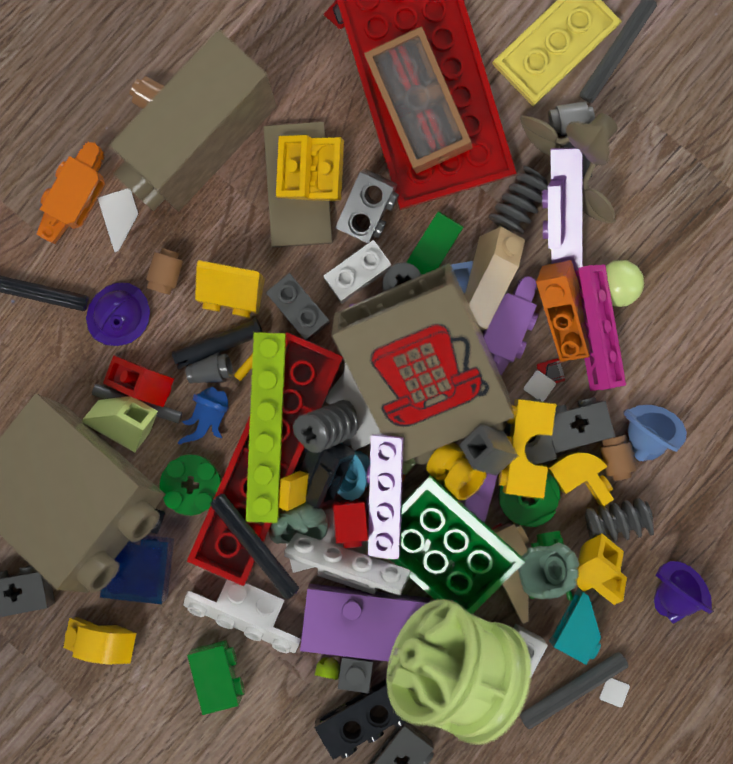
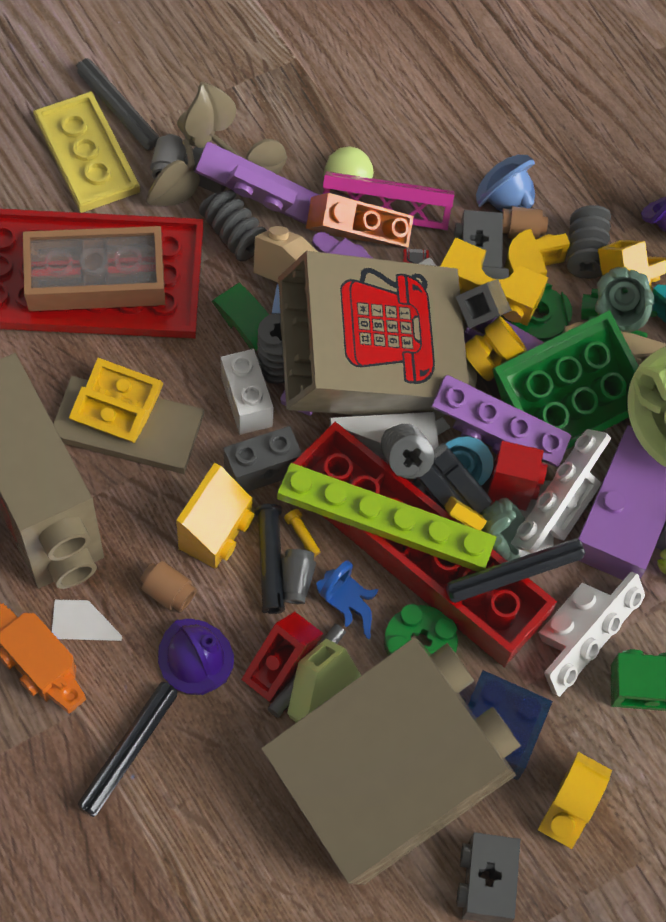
camera: 80 degrees left, 25 degrees down
(361, 203) = (173, 362): brick -> none

